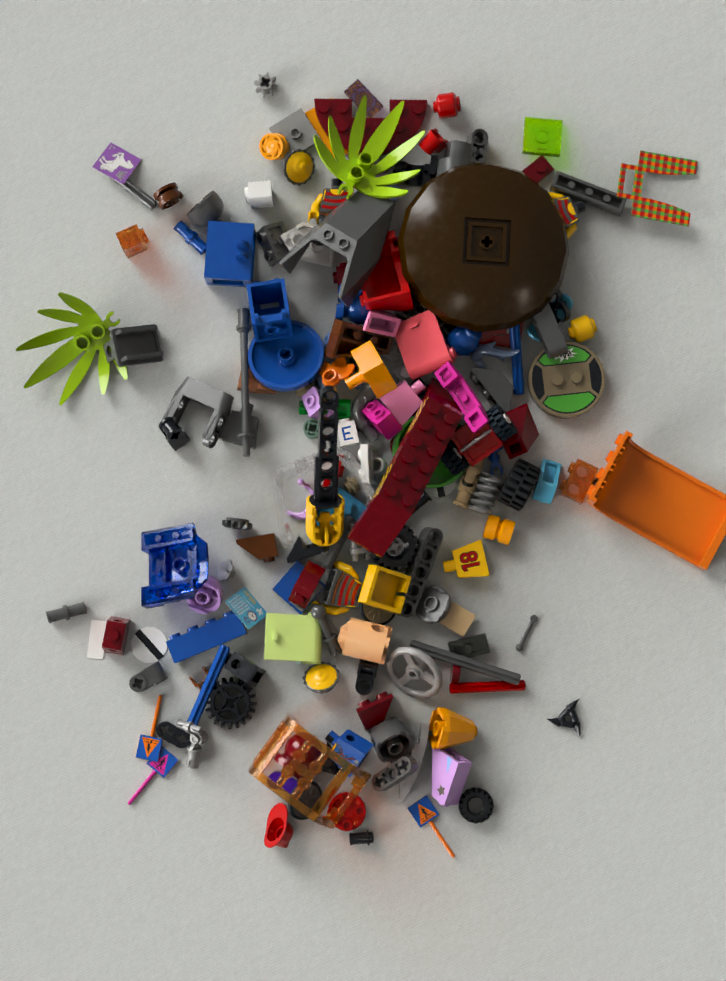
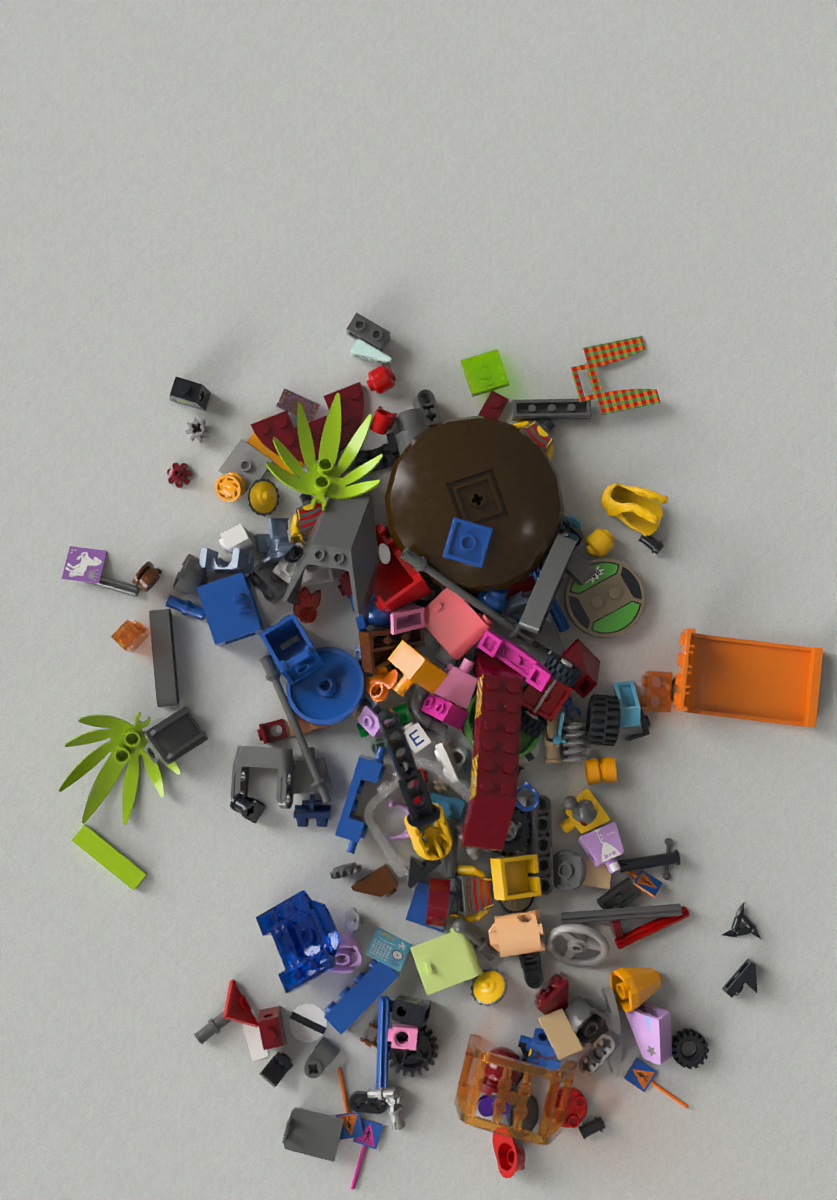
camera: 25 degrees left, 0 degrees up
(34, 428) = (109, 857): none -> lime tile
(93, 604) = (237, 1007): none -> red tile
(105, 671) = (276, 1068): none -> black bracket
(114, 739) = (313, 1134): none -> dark grey piece
(153, 273) = (164, 657): none -> dark grey beam
(215, 377) = (265, 731): none -> dark red bracket
(231, 460) = (312, 809): none -> dark blue hips
(234, 120) = (181, 477): none -> dark red plant
(237, 686) = (409, 1043): none -> bright pink brick
(255, 214) = (240, 561): none -> sand blue piece
(255, 484) = (353, 826): none -> blue brick
(270, 48) = (188, 393): none -> black torso
(292, 212) = (274, 544): none -> sand blue piece
(299, 278) = (307, 604): none -> clear red plate
(305, 224) = (294, 554): none -> black pin
(367, 739) = (560, 1034): none -> tan piece
(385, 259) = (384, 553): none -> white sticker
(414, 279) = (421, 564): none -> dark grey bar
(418, 517) = (529, 787): none -> blue piece
(445, 77) = (367, 352): none -> light aqua slope
(452, 59) = (368, 331): none -> dark grey brick
(462, 275) = (467, 542): none -> blue tile
(467, 555) = (581, 811): none -> dark grey animal
(471, 485) = (557, 739): none -> medium azure piece
(473, 596) = (603, 846): none -> lavender torso
(497, 642) = (646, 882): none -> piece
(508, 627) = (649, 861): none -> black pin
(518, 344) = (547, 584): none -> dark grey beam
(553, 762) = (744, 974): none -> black slope
(556, 505) = (645, 723): none -> black bracket
(624, 309) = (633, 507): none -> yellow hair
(628, 347) = (652, 543): none -> black pin

